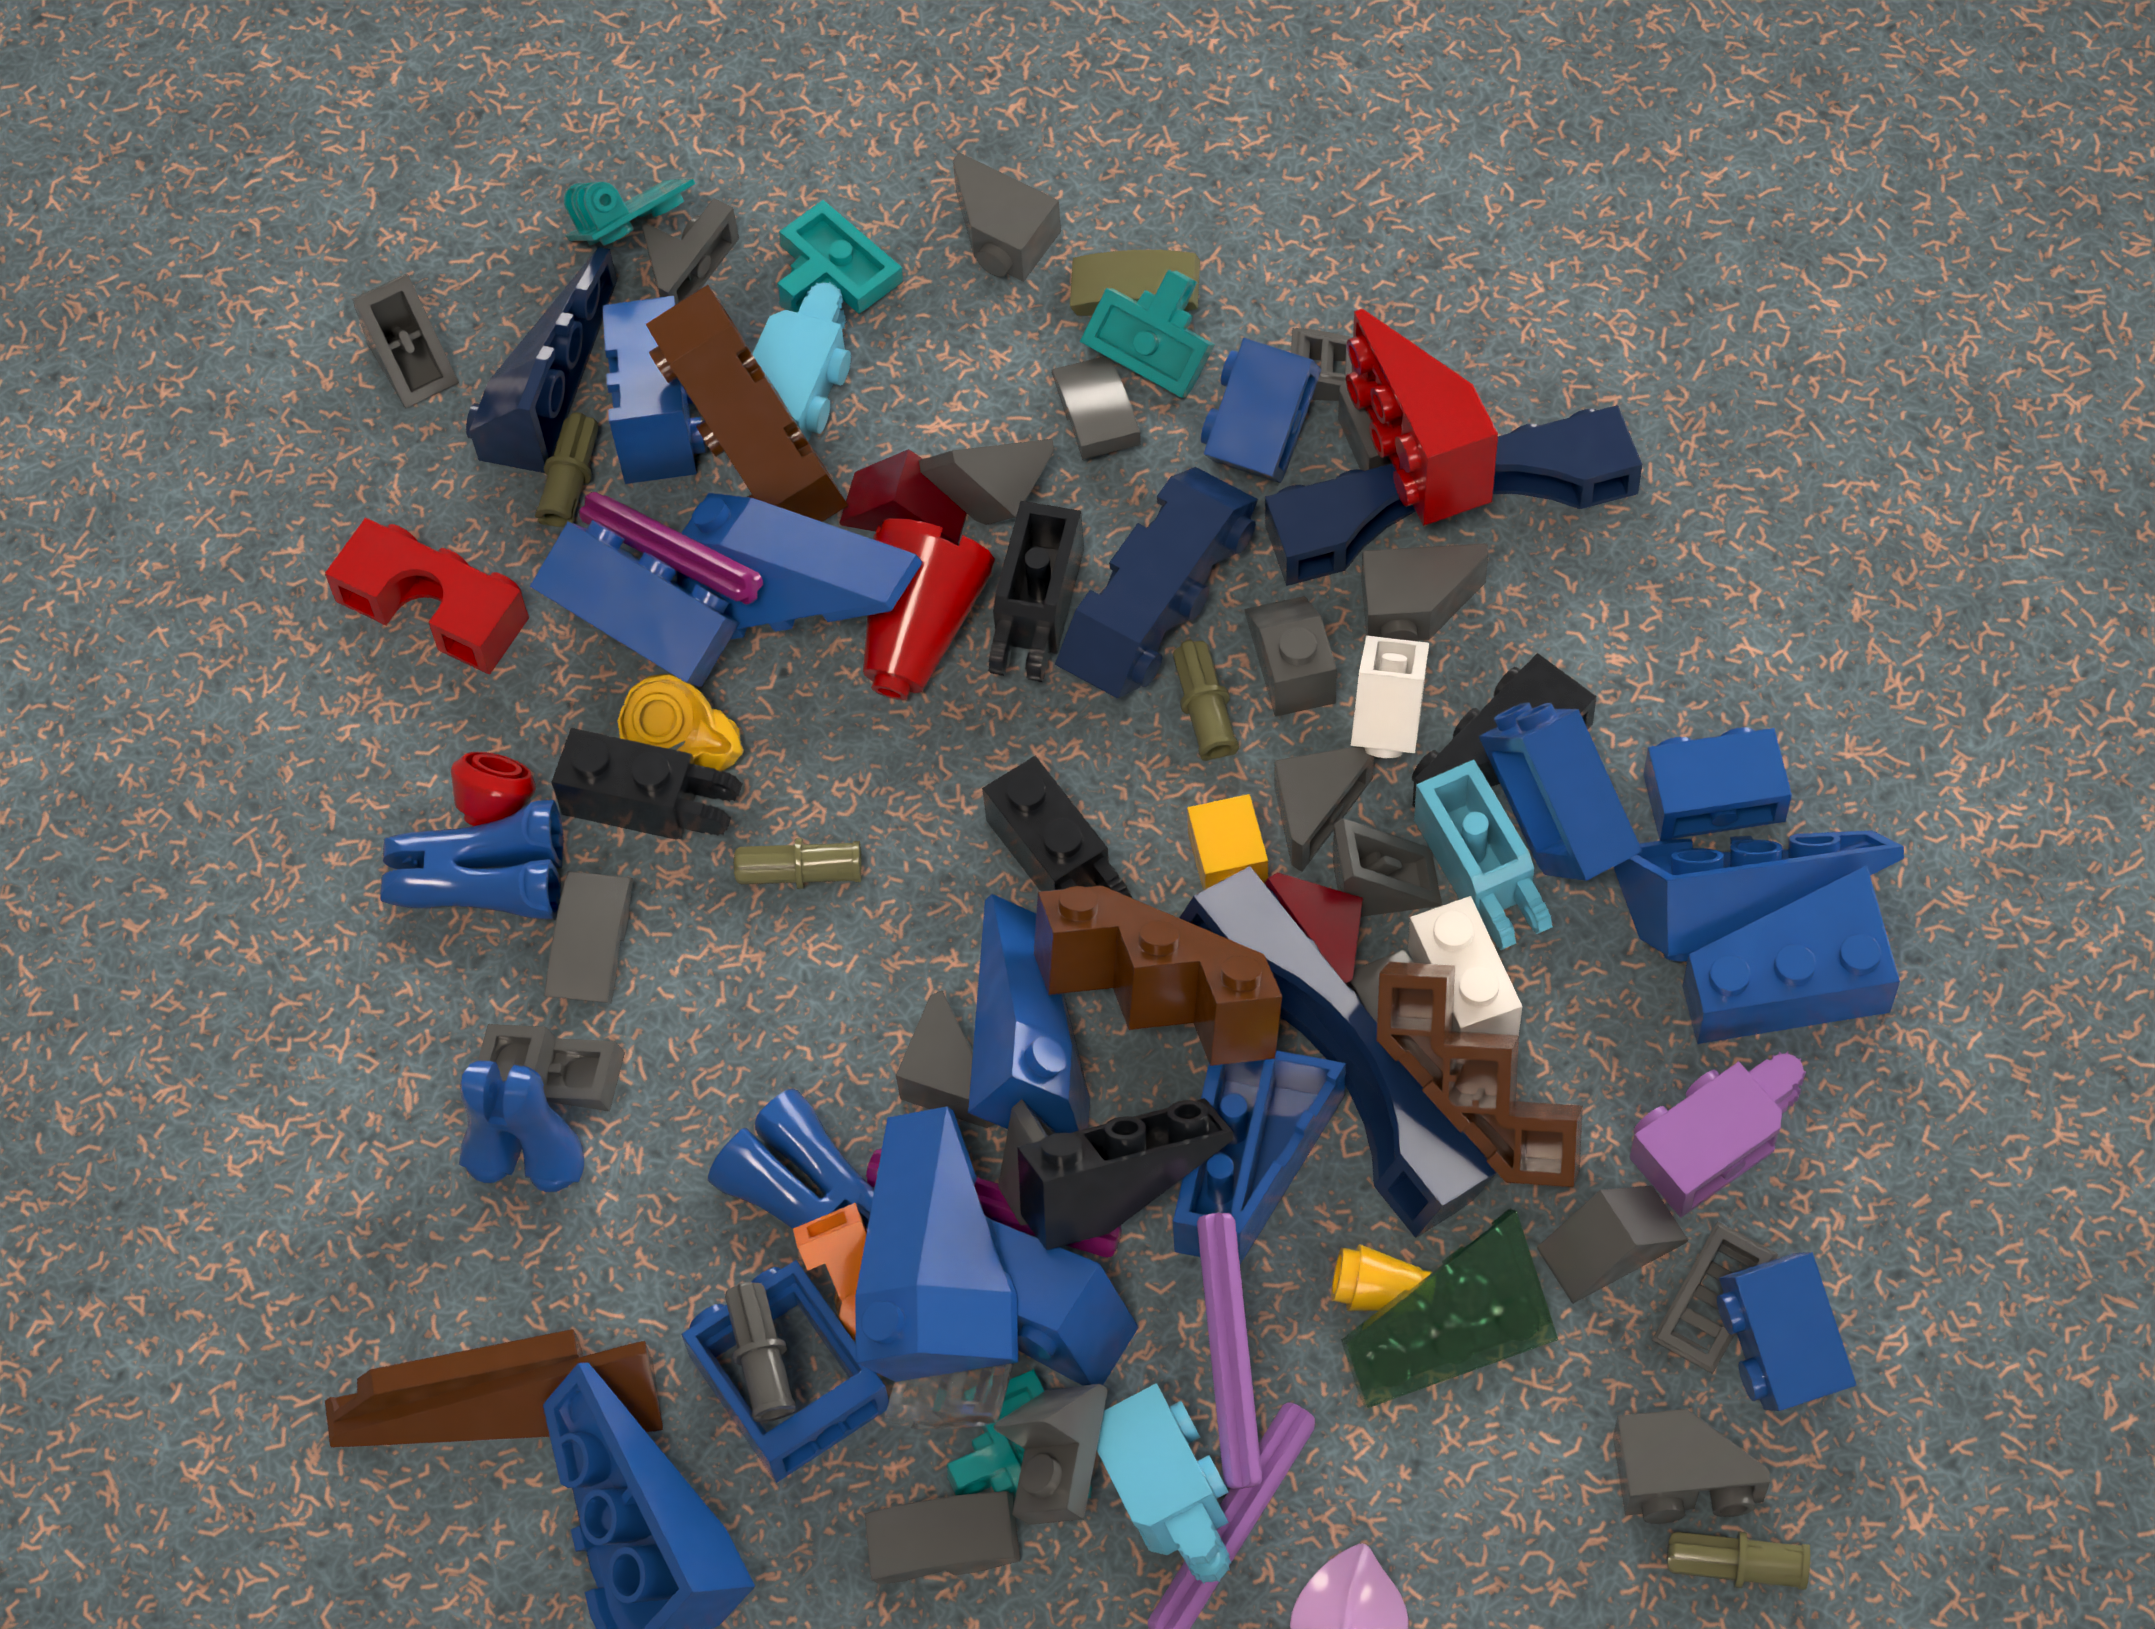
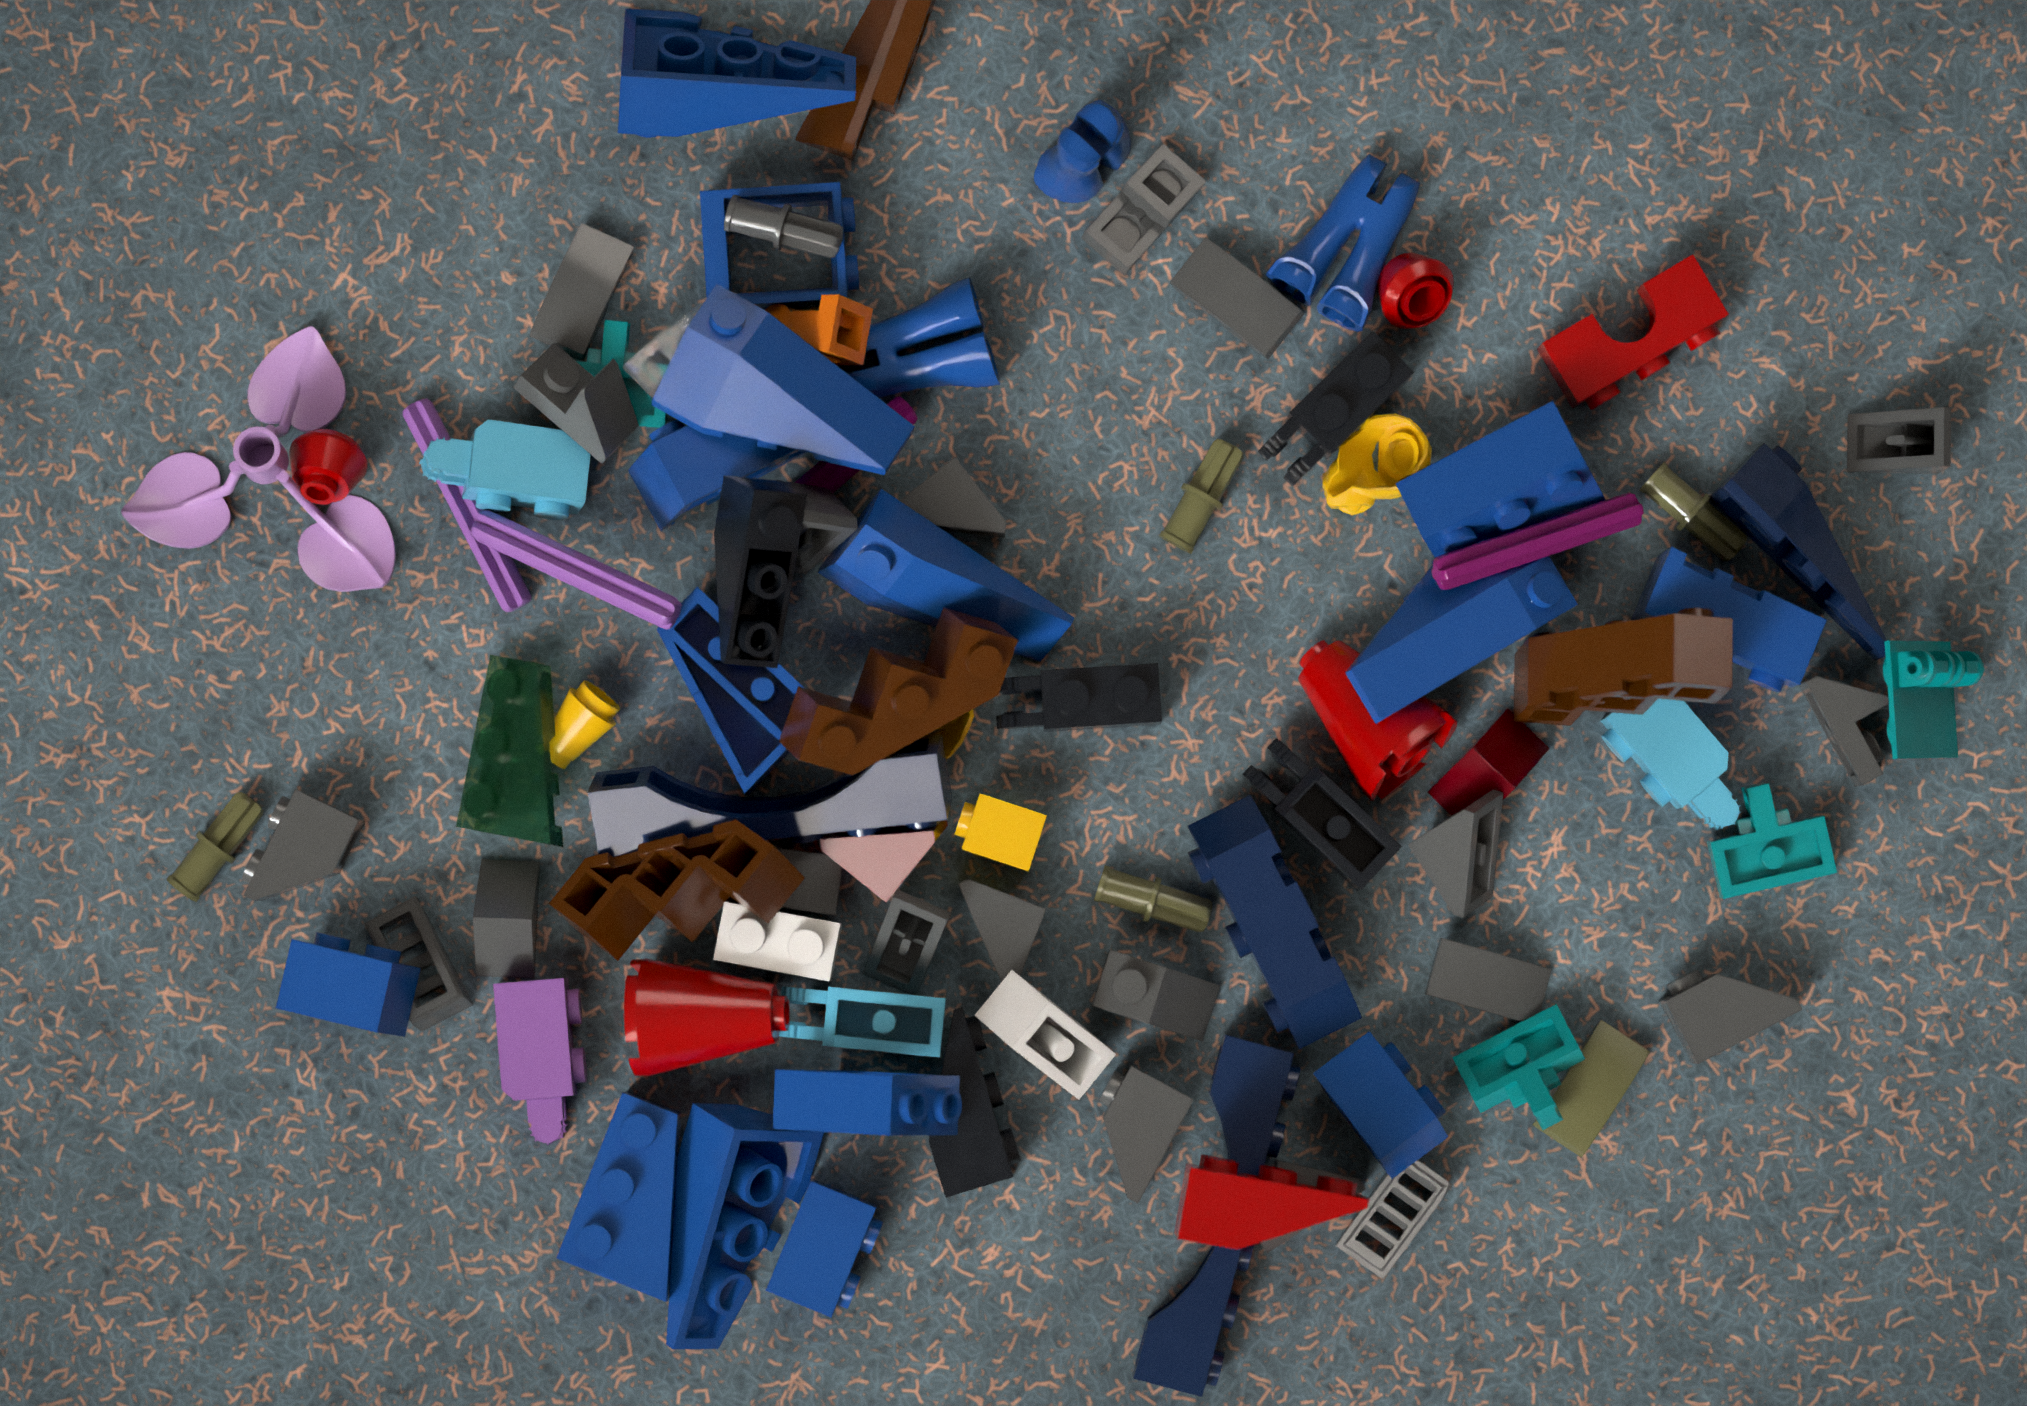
camera: 115 degrees right, 25 degrees up
(1584, 992) = (696, 1015): none -> red cone

